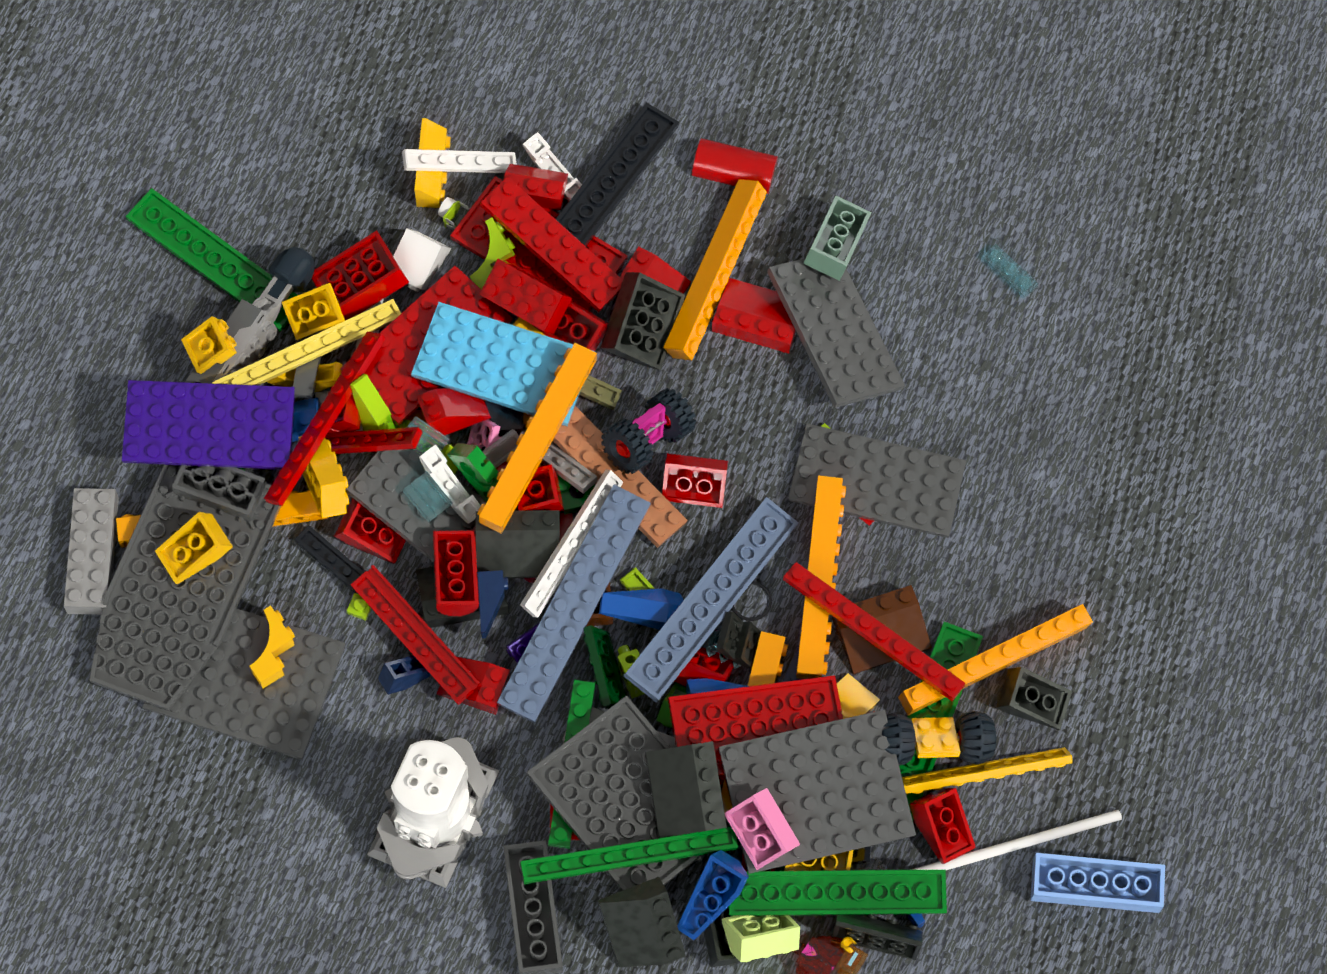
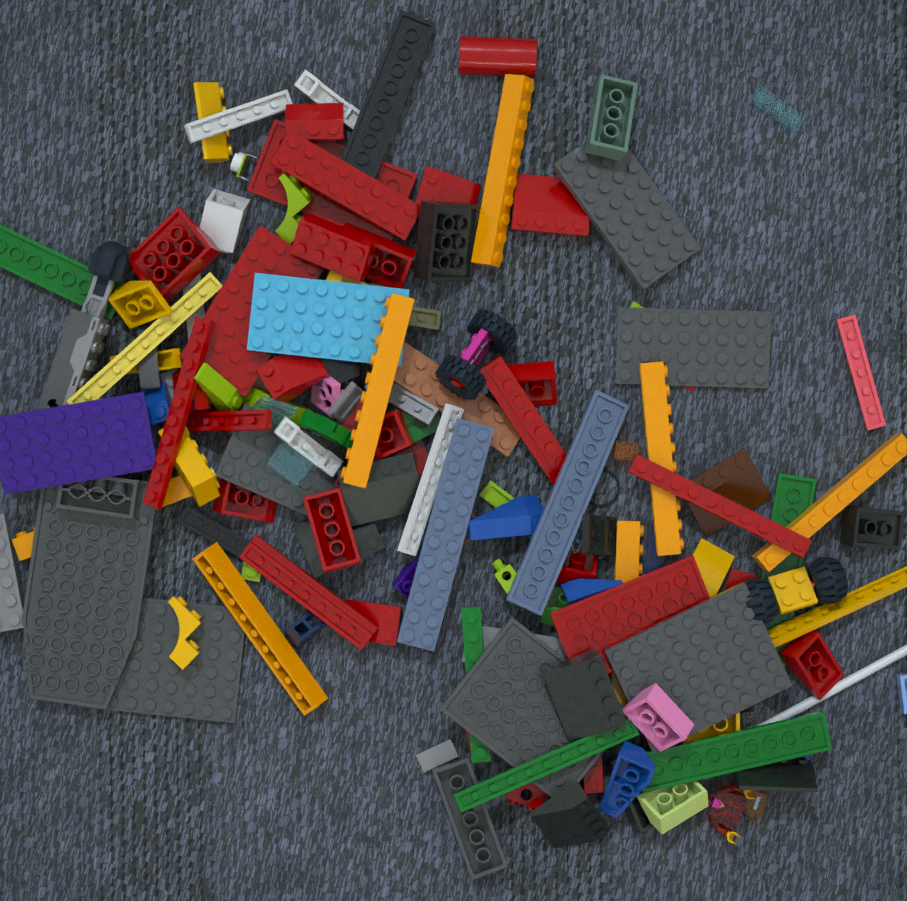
camera: 10 degrees left, 20 degrees up
(193, 547) = (90, 559): yellow slope -> none
(209, 344) = (54, 363): yellow plate -> none
(354, 663) = (260, 628): none -> light orange brick
(432, 809) = (362, 749): piece -> none
(491, 596) = (368, 544): dark blue slope -> none
(511, 836) = (437, 755): none -> light grey tile
(590, 889) = (537, 798): none -> red brick
(605, 666) = (486, 586): dark green plate -> none
(678, 891) = (594, 778): none -> red brick
(684, 505) = (524, 417): none -> red plate
(782, 563) = (626, 450): none -> clear orange brick
(1050, 540) = (860, 372): none -> coral plate

